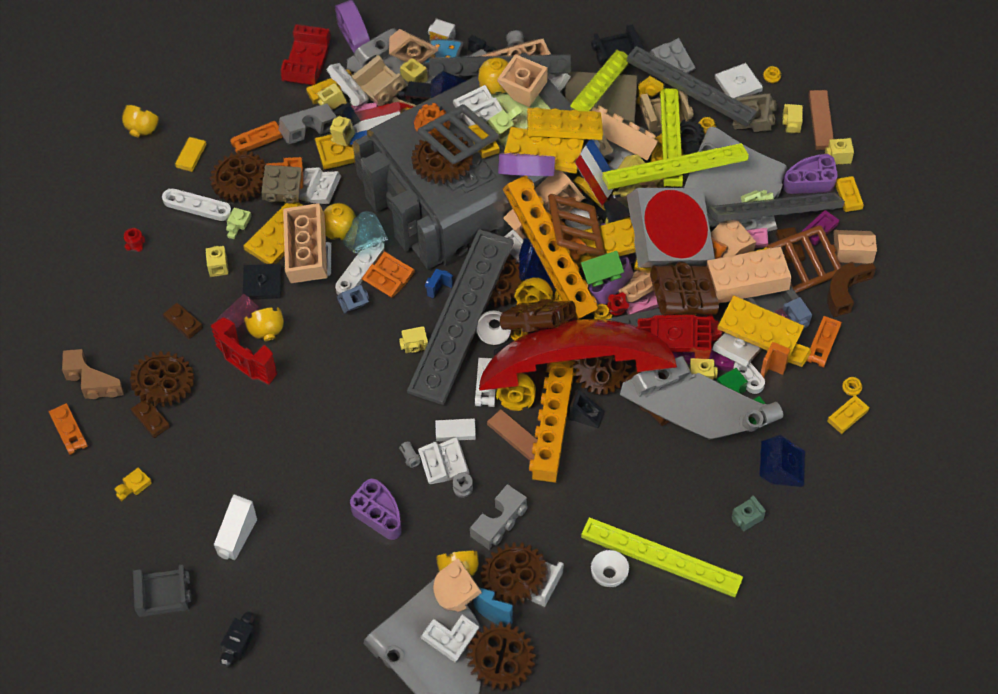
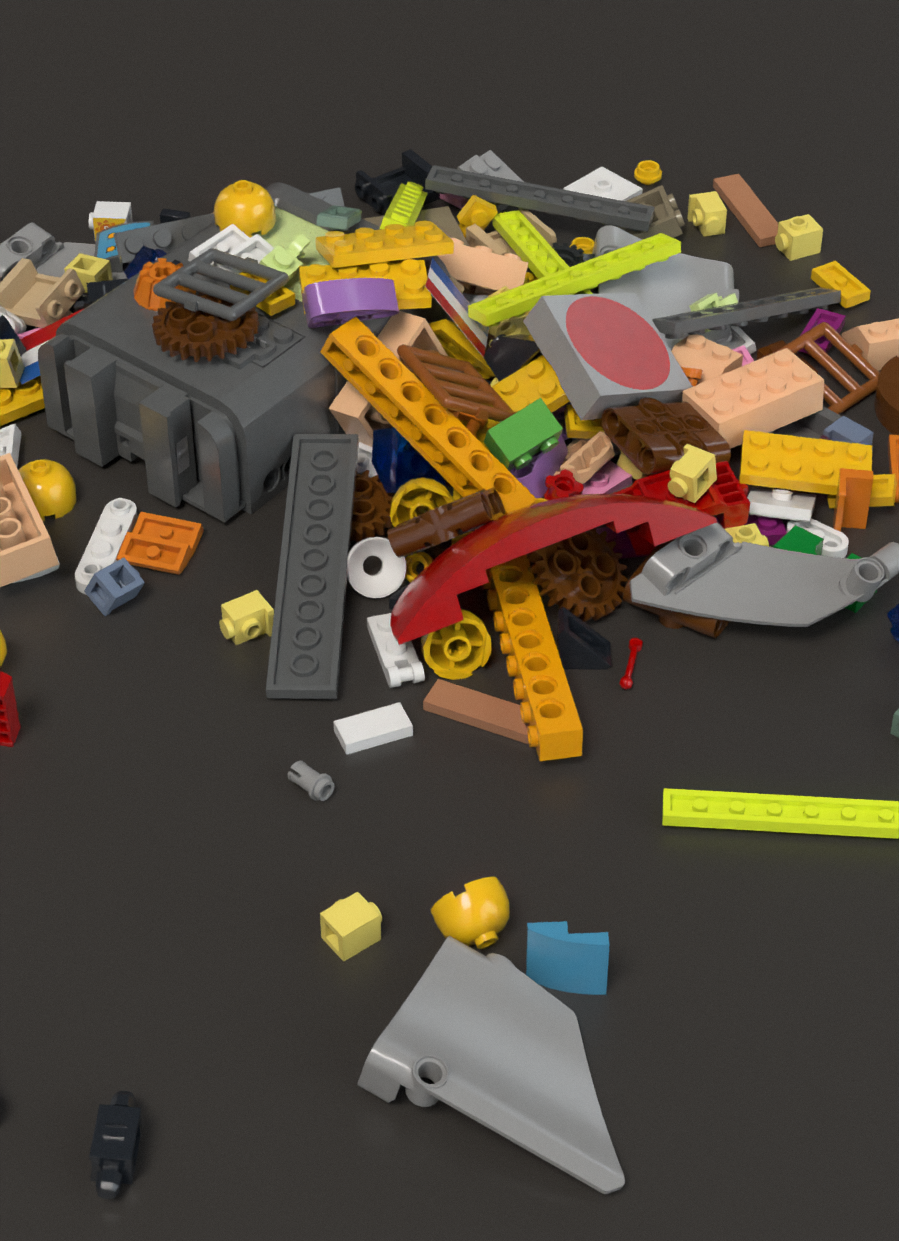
camera: 20 degrees left, 15 degrees down
(235, 527) = (42, 963): white slope -> none
(364, 232) = (98, 488): clear light blue slope -> none
(377, 503) = (289, 871): medium lavender beam -> none
(396, 550) = (351, 925): none -> light yellow brick
(407, 46) = (71, 231): light nougat slope -> none
(438, 278) = (252, 526): blue bracket -> none
(443, 460) = (374, 776): white slope -> none
(450, 642) = (515, 1030): white plate -> none
(455, 587) = (493, 935): light nougat slope -> none
(464, 489) = (424, 800): light grey wheel -> none
(483, 651) = (636, 1025): reddish brown gear -> none
(491, 530) = (504, 851): light grey arch -> none
(514, 573) = (583, 892): reddish brown gear -> none
(523, 79) = (293, 201): light nougat slope -> none
(546, 96) = (339, 218): none -> sand green plate
(553, 577) = (634, 906): white panel -> none
(612, 560) = (738, 842): white piece -> none
(617, 417) = (635, 646): none -> red hinge
(682, 325) = (692, 473): none -> light yellow brick
(811, 175) = (775, 270): medium lavender beam -> none

